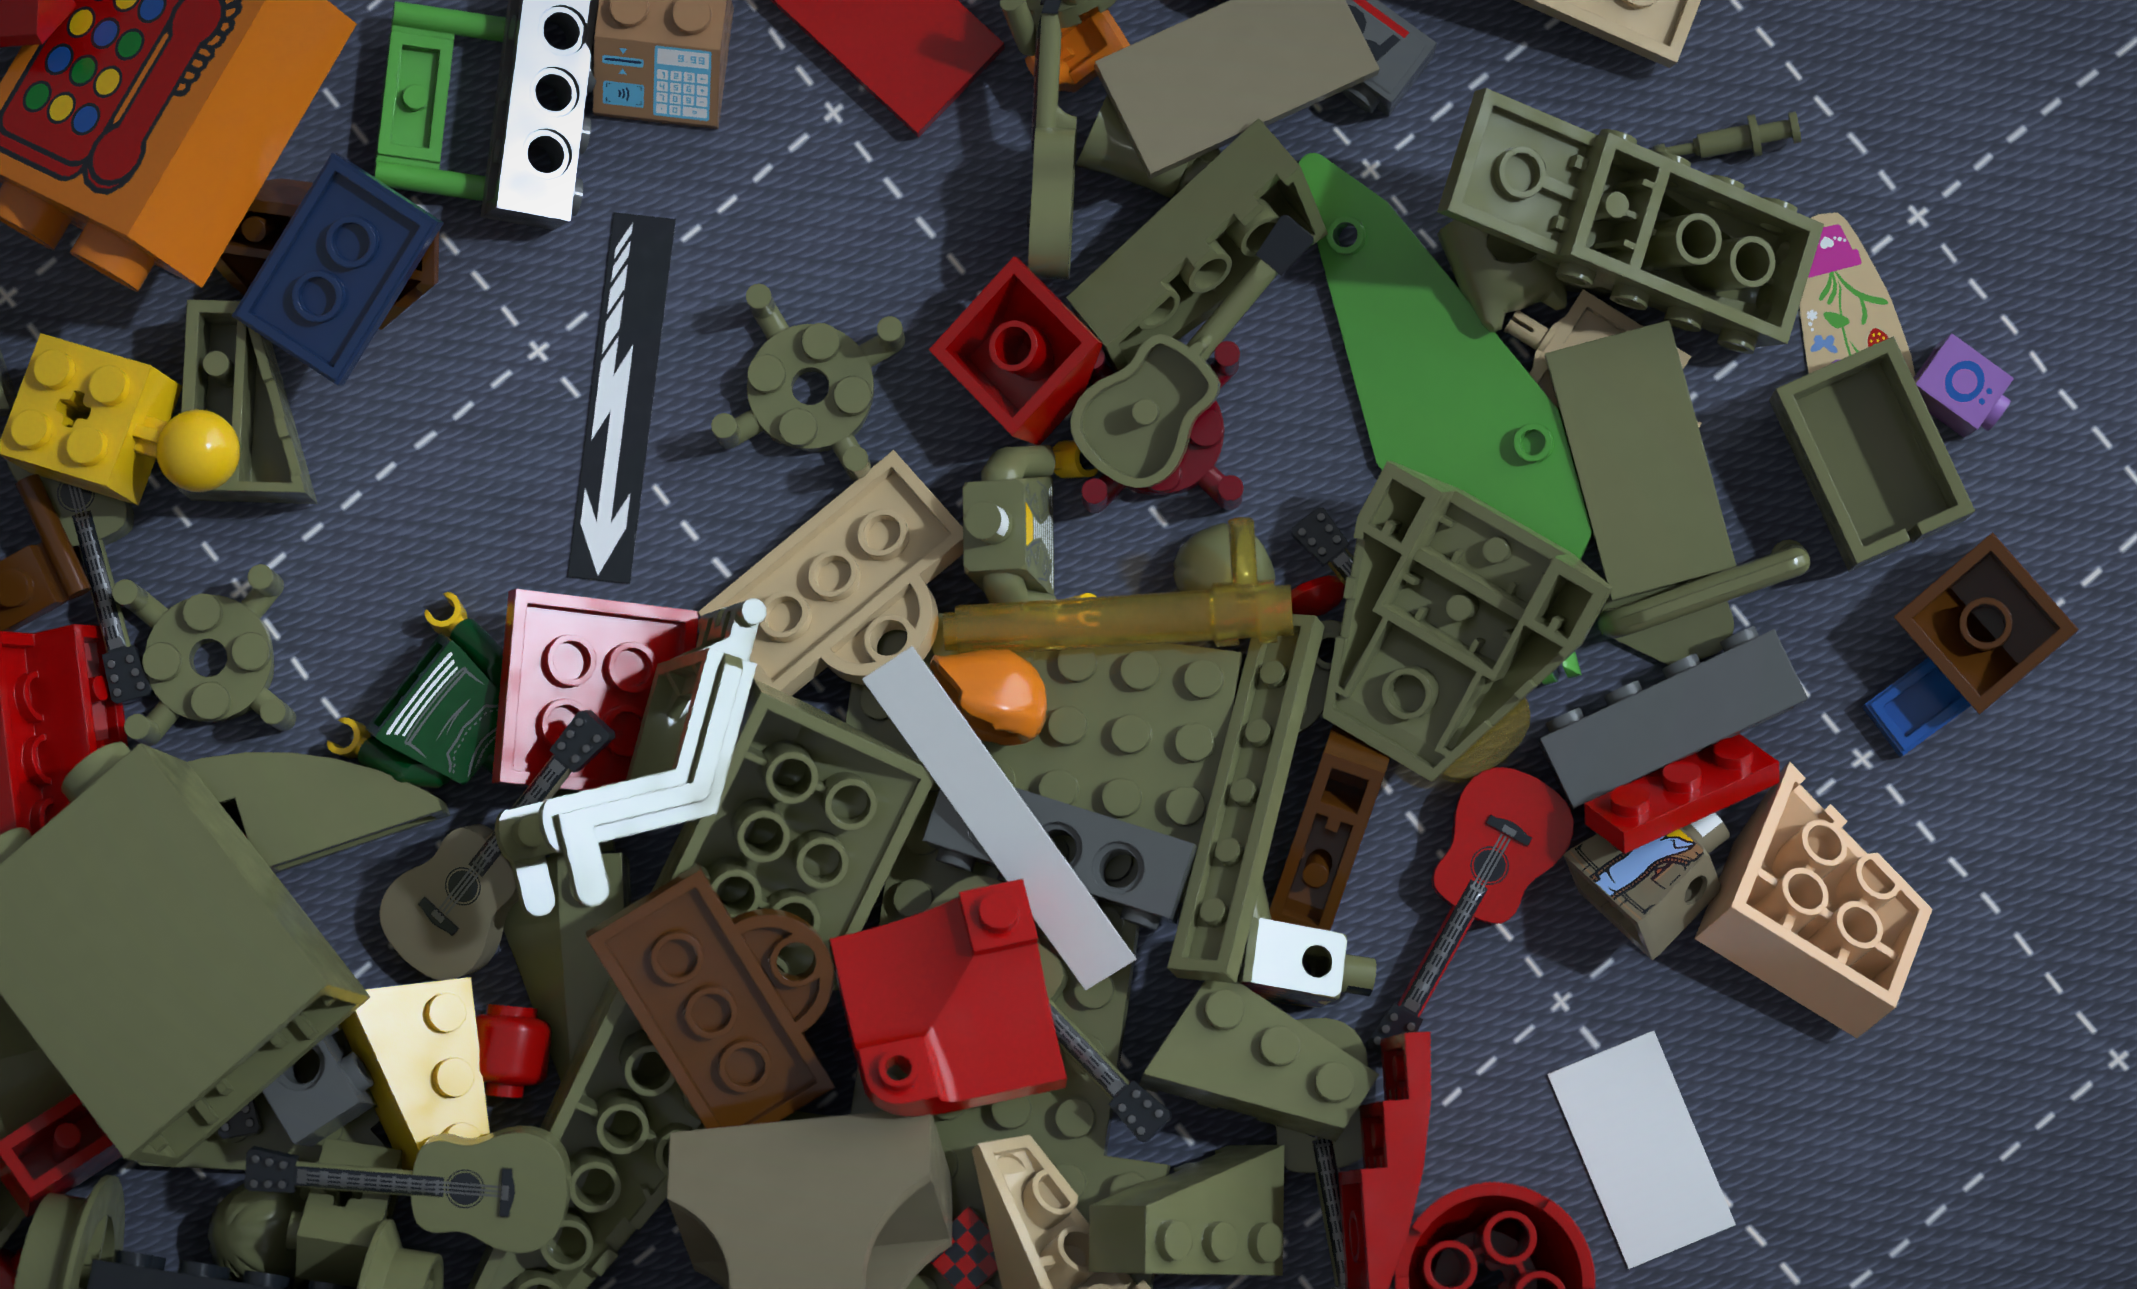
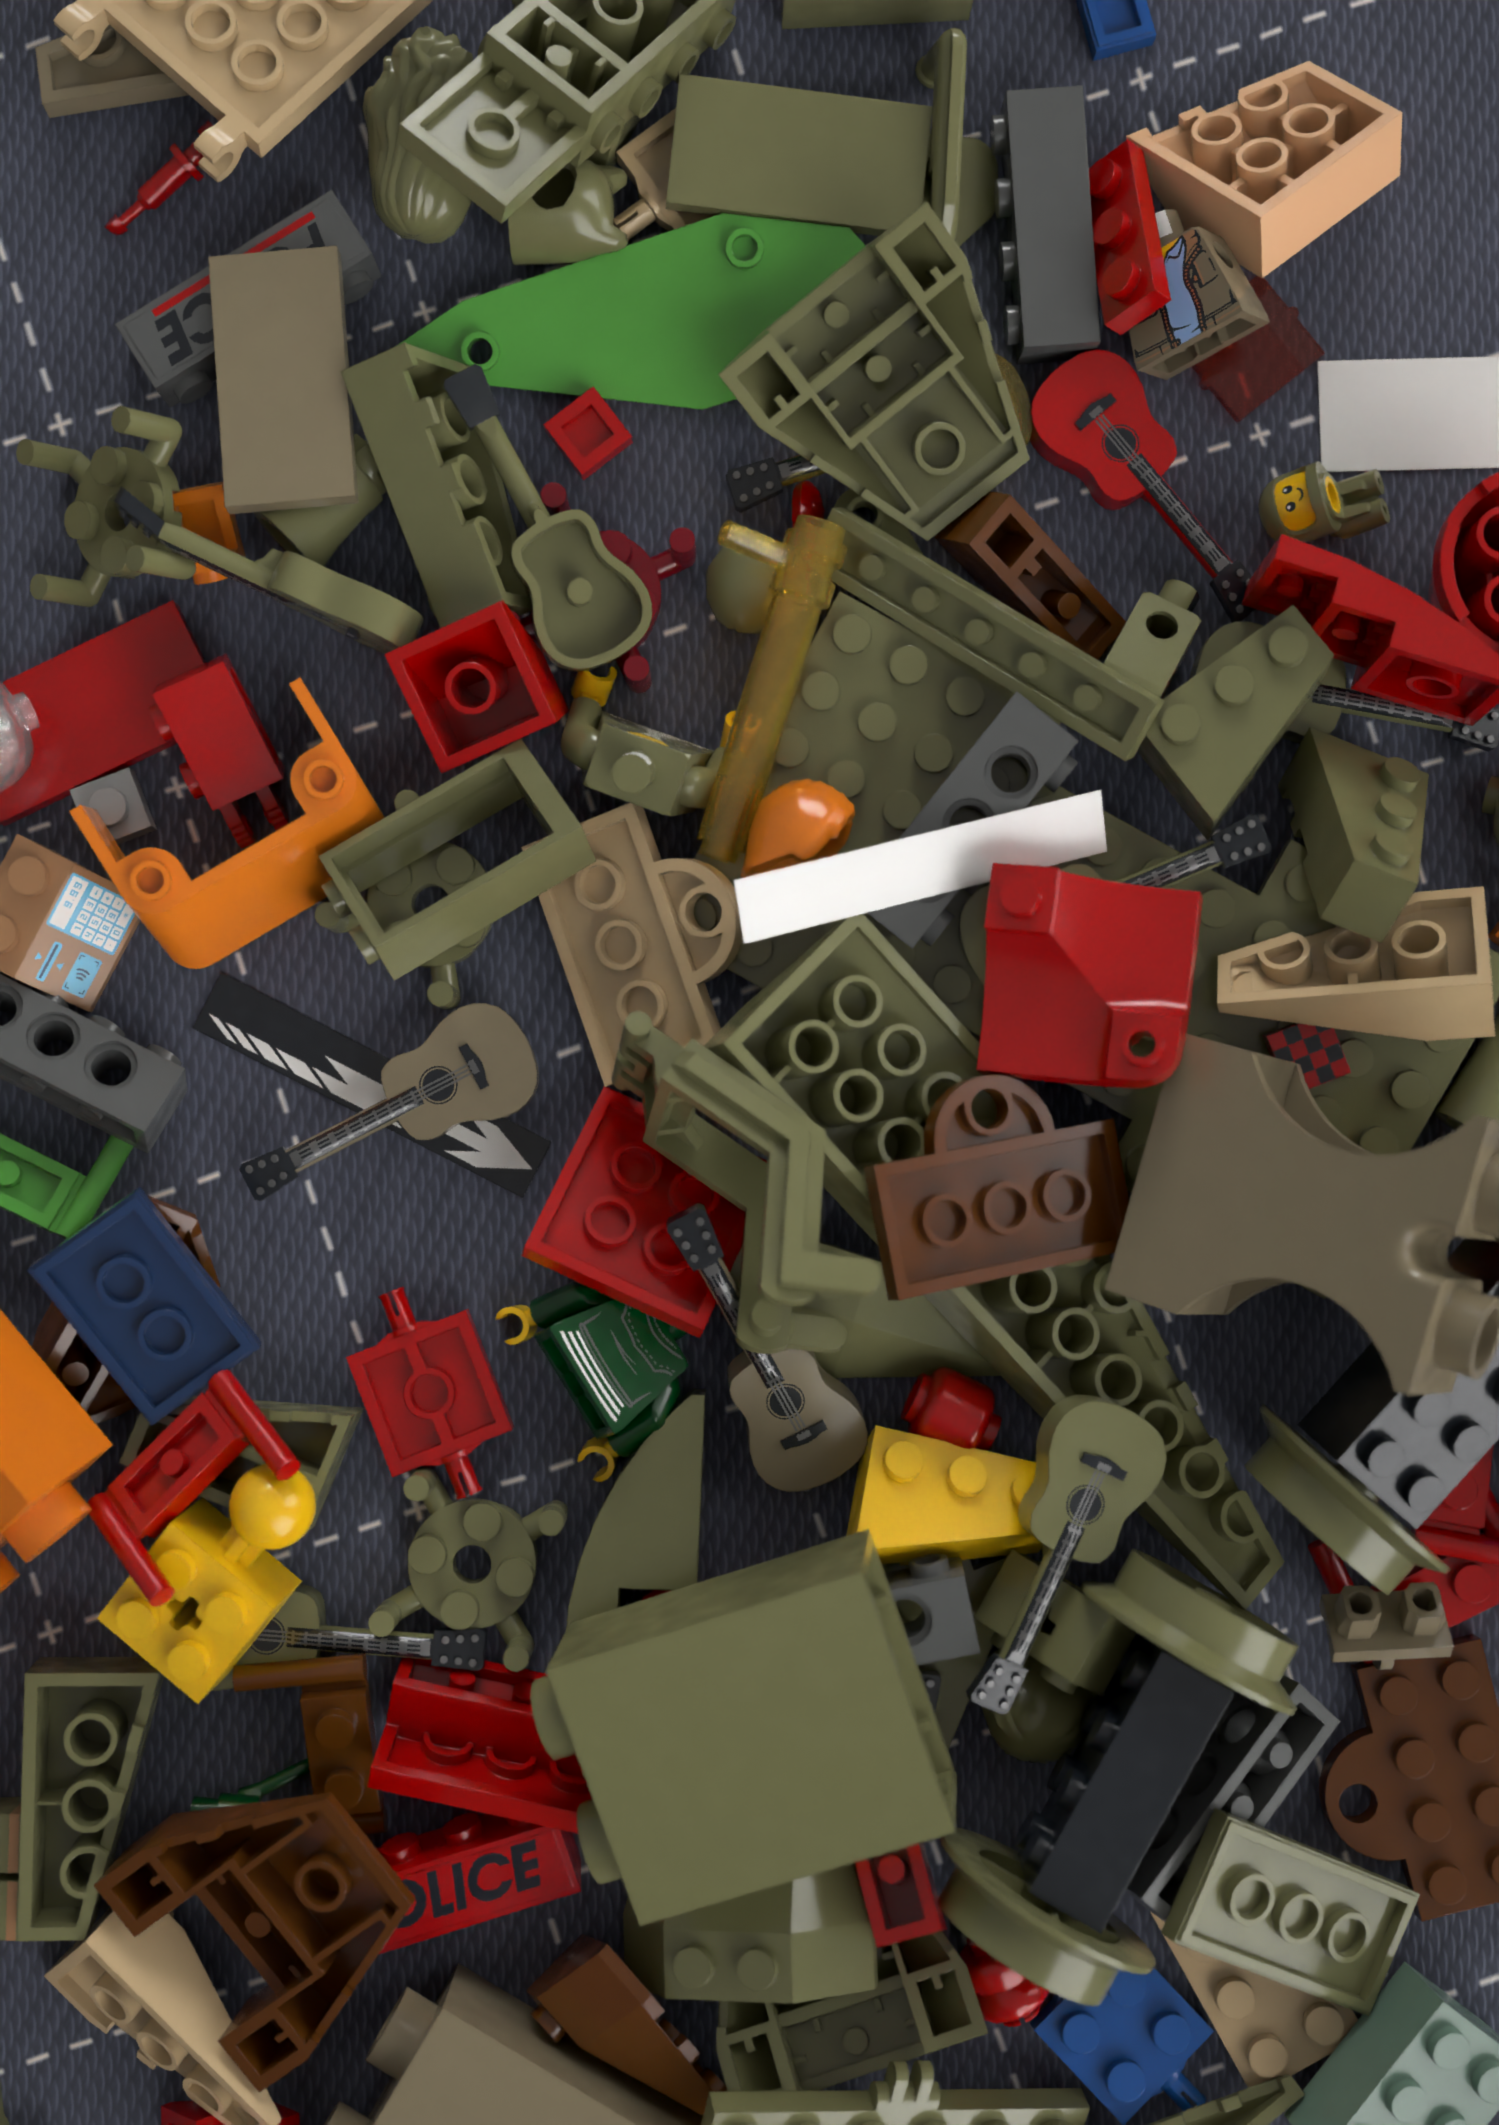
camera: 80 degrees left, 5 degrees up
(201, 355) = (178, 1470): none -> red plate
(353, 559) = (430, 1392): none -> red plate
(666, 479) = (466, 1071): none -> dark tan piece
(789, 63) = (119, 804): none -> light grey plate
(831, 278) = (259, 886): none -> orange windscreen
(878, 357) = (436, 820): none -> olive window
(884, 139) = (222, 743): none -> red hinge
(1308, 364) = (588, 433): none -> red plate
(1502, 1073) = (1313, 505): none -> olive piece
(1555, 81) = (405, 190): none -> olive hair
(1631, 981) = (1262, 361): none -> clear red piece

